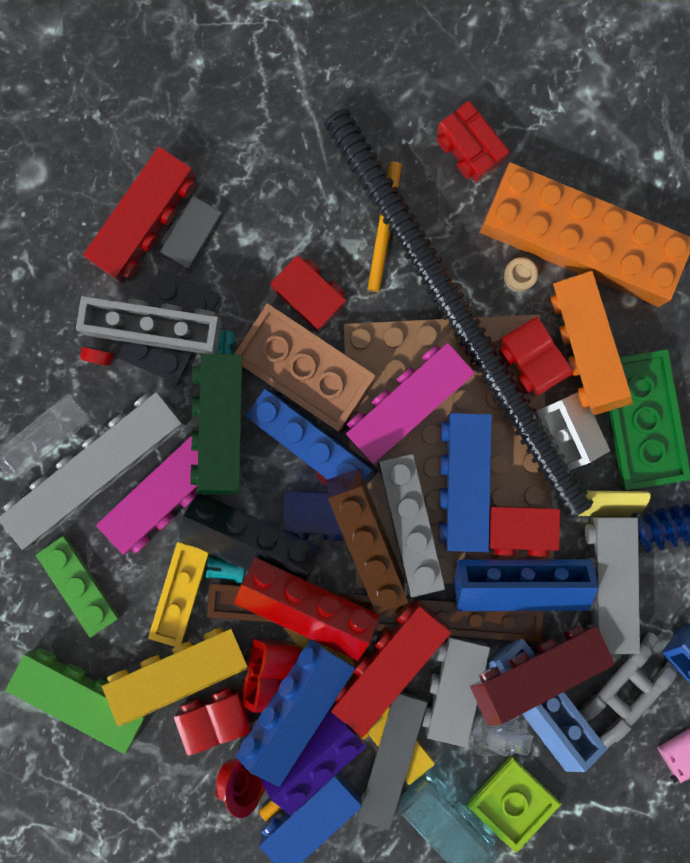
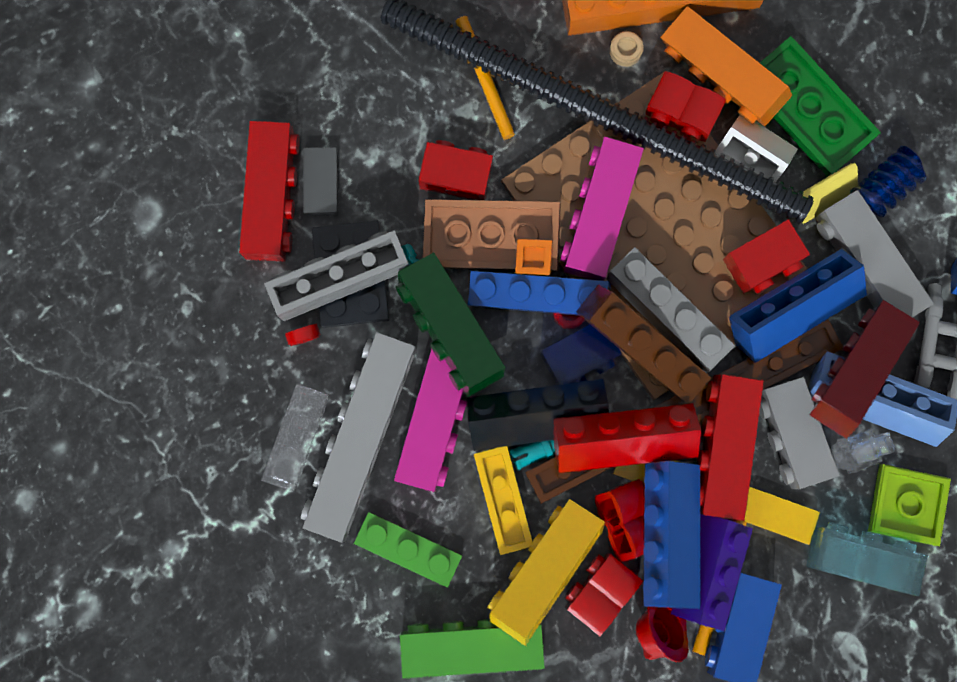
camera: 30 degrees left, 5 degrees down
(324, 410) = (534, 257): none -> orange plate
(392, 760) = (781, 530): dark grey tile -> none
(467, 482) = (694, 246): blue brick -> none

